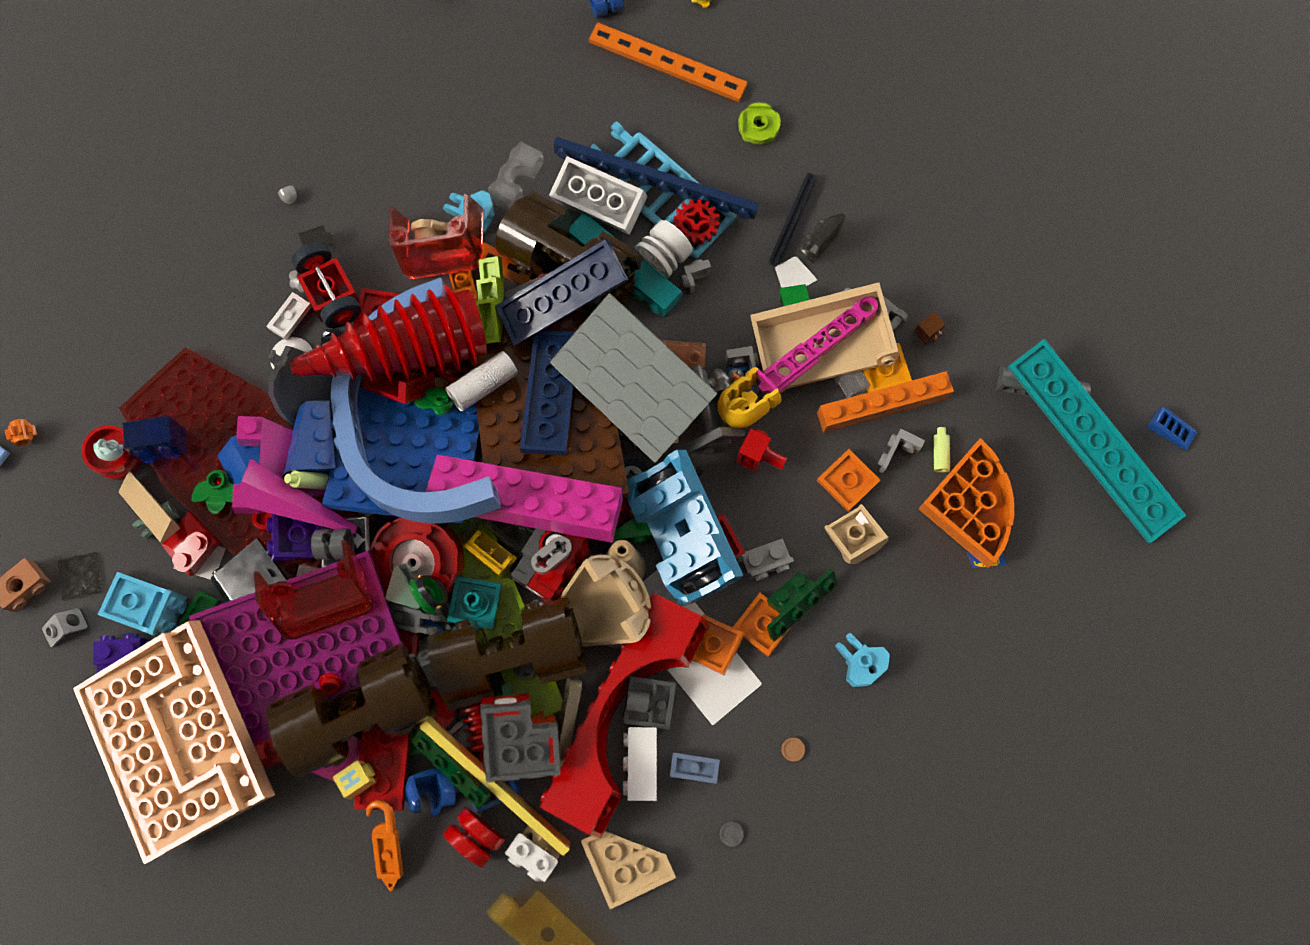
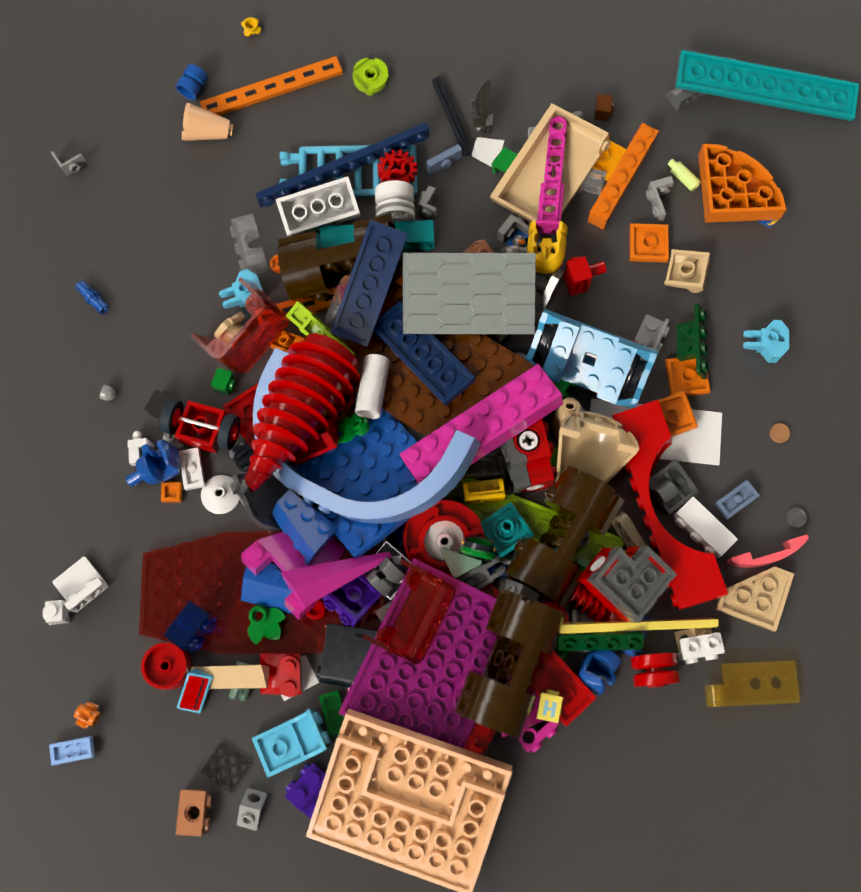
camera: 40 degrees left, 0 degrees up
(74, 328) = (56, 612): none -> white brick
(108, 450) = (167, 663): light aqua plate -> none
(112, 492) = (195, 691): none -> slope
(117, 327) = (80, 584): none -> white bracket
(256, 320) = (171, 492): none -> orange tile
(263, 259) = (135, 447): none -> white piece
(264, 286) = (156, 465): none -> blue piece
(307, 480) = (328, 551): yellowish green cylinder -> none
(330, 683) = (474, 663): red plate -> none
(330, 794) = (547, 729): none -> dark pink plate
(354, 107) = (92, 297): none -> blue pin
(383, 268) = (223, 381): none -> green plate
(386, 846) = (607, 729): orange plate -> none
(547, 551) = (539, 448): light grey beam -> none
(578, 43) = (204, 125): none -> light nougat cone
(700, 853) = (746, 561): none -> coral slope
(746, 250) = (444, 159): none -> sand blue plate
(1169, 417) = (793, 47): blue slope -> none

